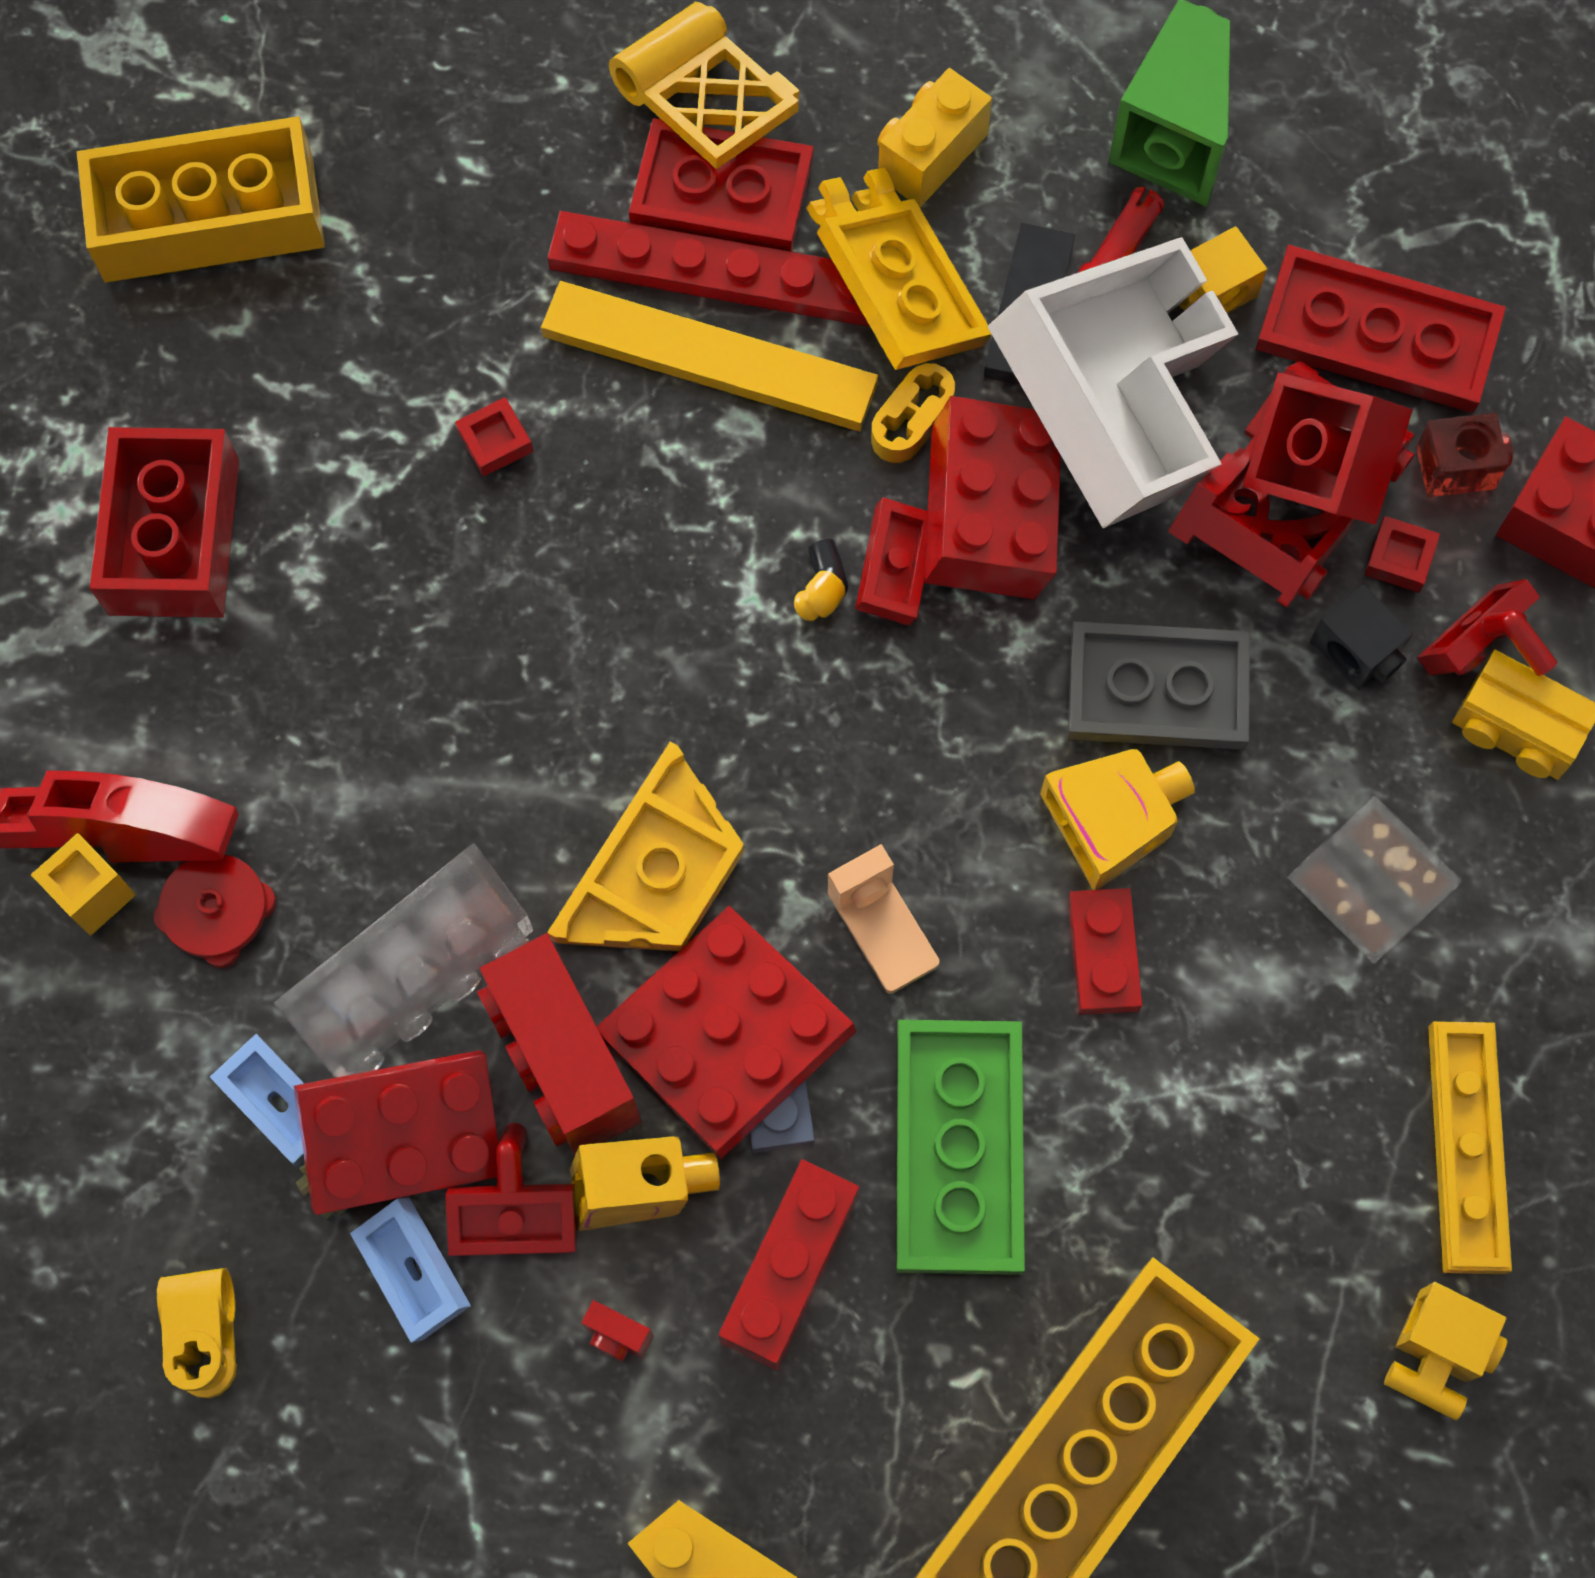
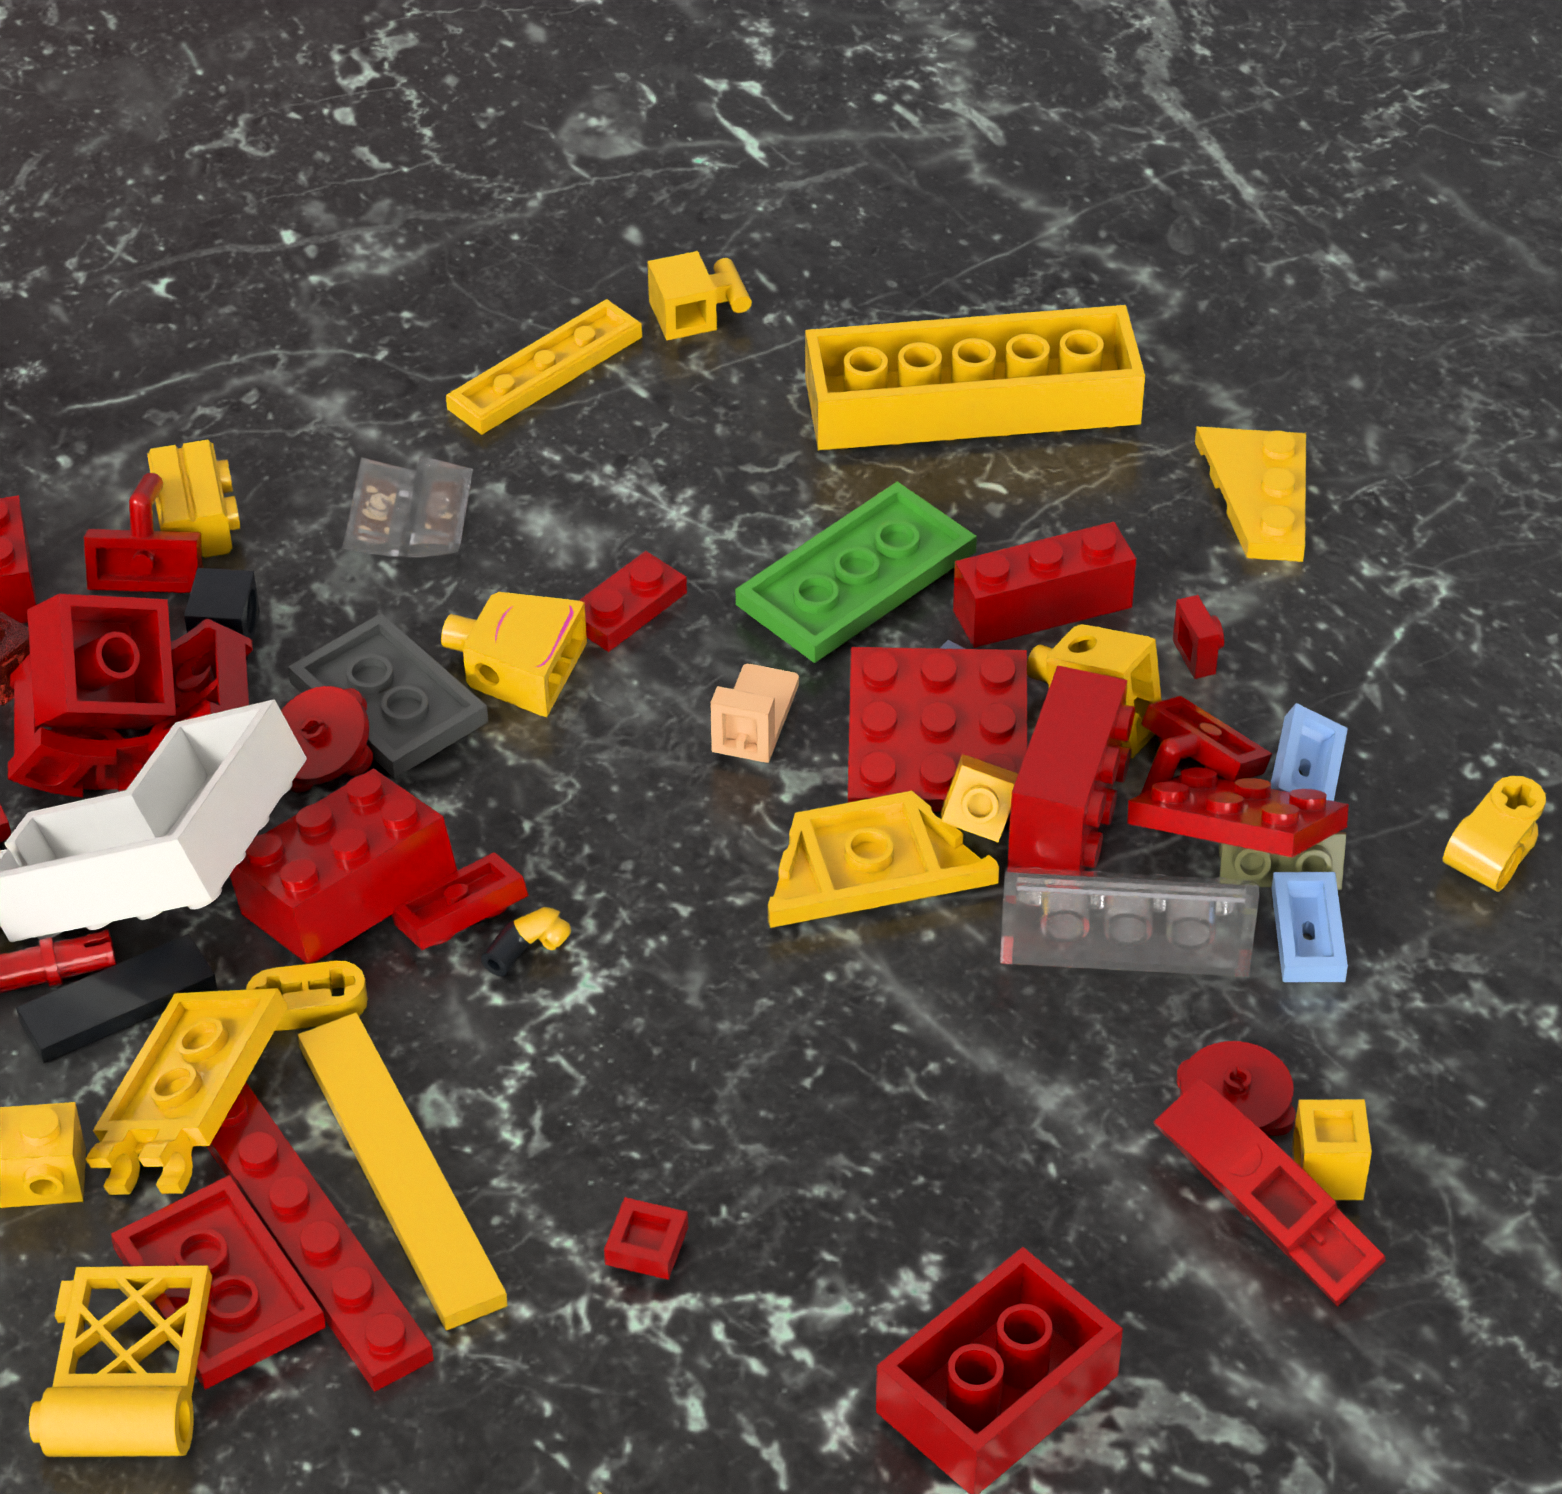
camera: 135 degrees left, 25 degrees down
(610, 968) = (979, 798): none -> yellow brick
(1148, 595) = (332, 733): none -> red piece

